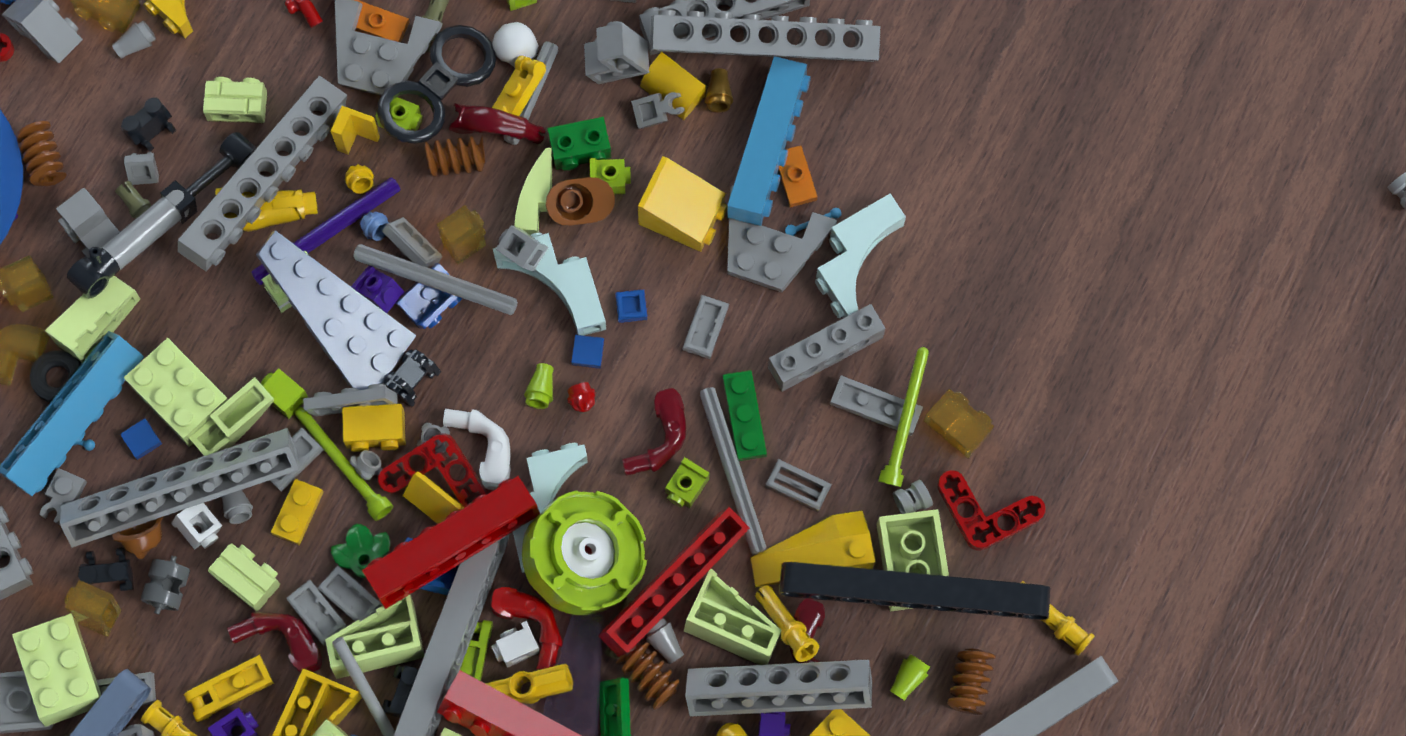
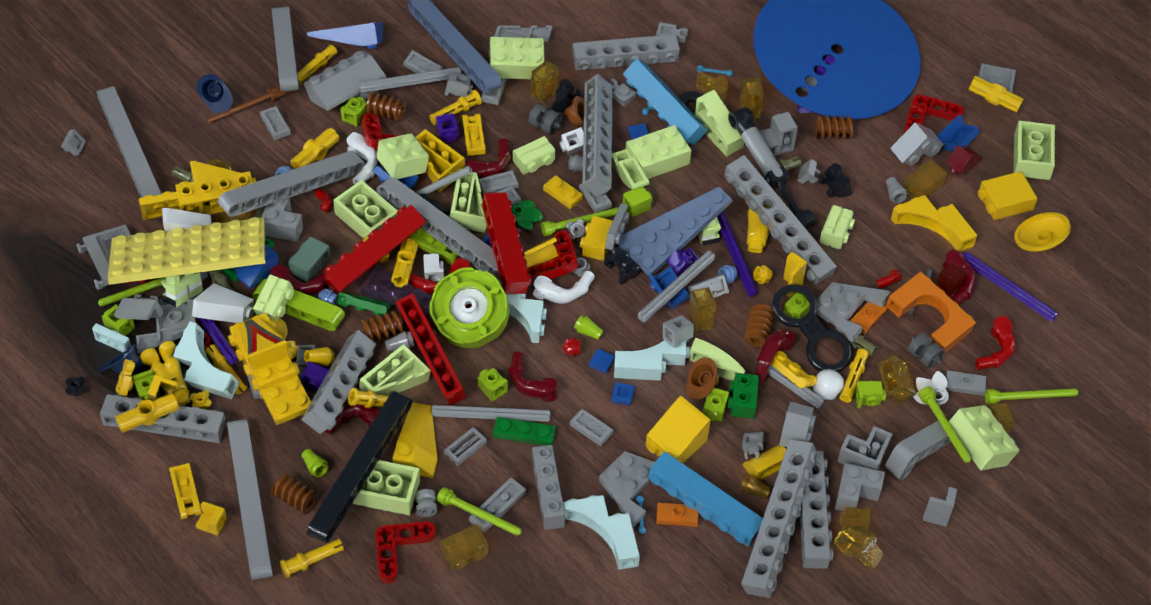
camera: 110 degrees right, 20 degrees down
(489, 14) = (847, 392): none -> yellow pin

